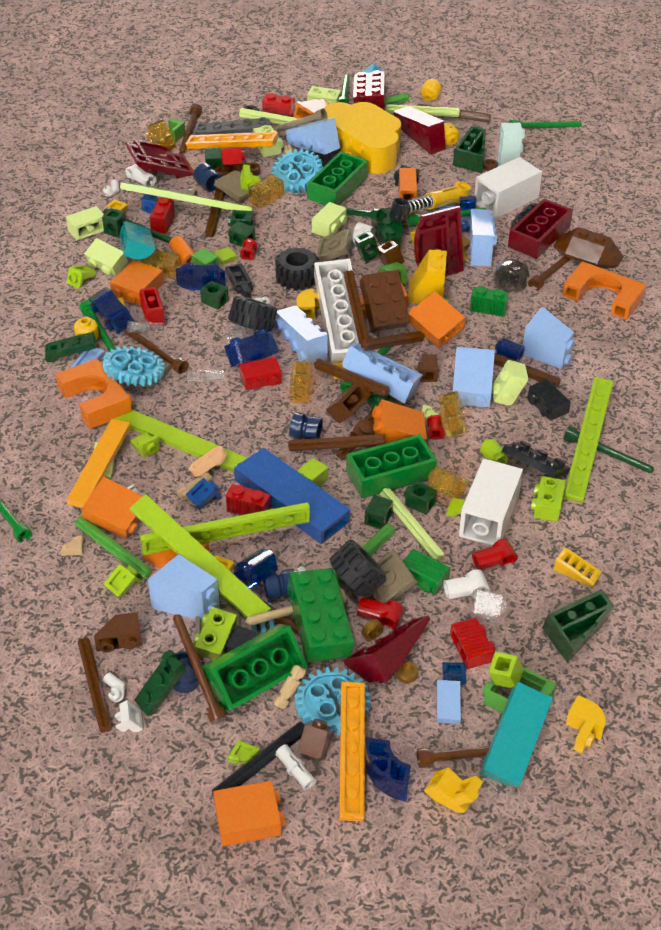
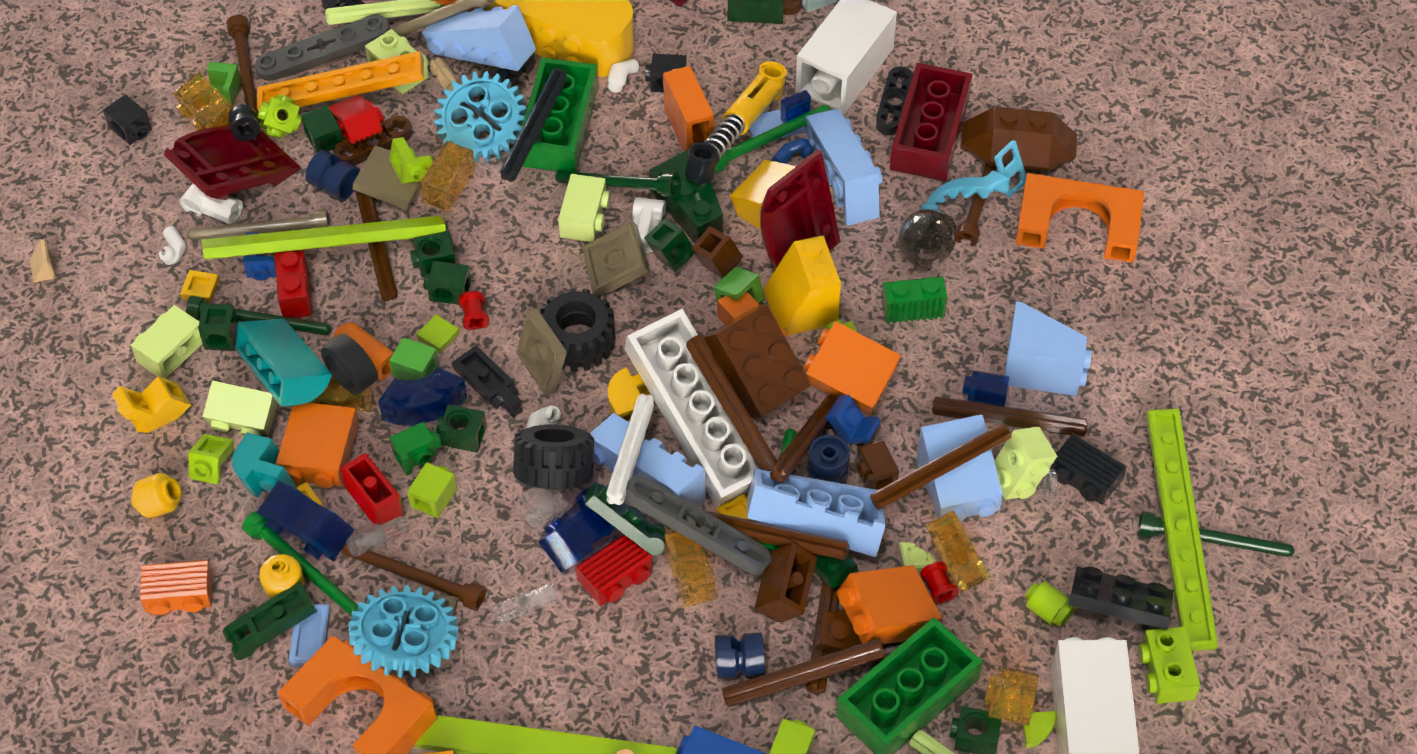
camera: 20 degrees left, 10 degrees up
(32, 321) = (176, 586): none -> orange brick
(44, 282) = (156, 495): none -> yellow head
(46, 179) = (42, 262): none -> tan slope
(63, 248) = (154, 407): none -> yellow brick
(100, 279) = (256, 464): none -> teal brick
(119, 133) = (127, 119): none -> black brick
(167, 246) = (349, 364): none -> black tyre
(175, 141) = (240, 116): none -> black wheel
(184, 316) = (432, 489): none -> lime brick
(185, 296) = (414, 446): none -> green brick
(193, 151) = (270, 121): none -> lime brick
(271, 271) = (541, 352): none -> dark tan tile
(274, 346) = (627, 520): none -> plate
(291, 316) = (630, 449): none -> white axle
(311, 359) = (711, 534): none -> dark grey piece
(319, 175) = (533, 125): none -> black axle
(381, 171) = (619, 72): none -> white arm
(402, 353) = (828, 459): none -> dark blue wheel
(423, 343) = (850, 421): none -> blue bracket
(458, 366) = (940, 466): none -> reddish brown axle
(521, 400) = (1048, 486): none -> clear tile
(561, 261) = (983, 185): none -> medium azure piece

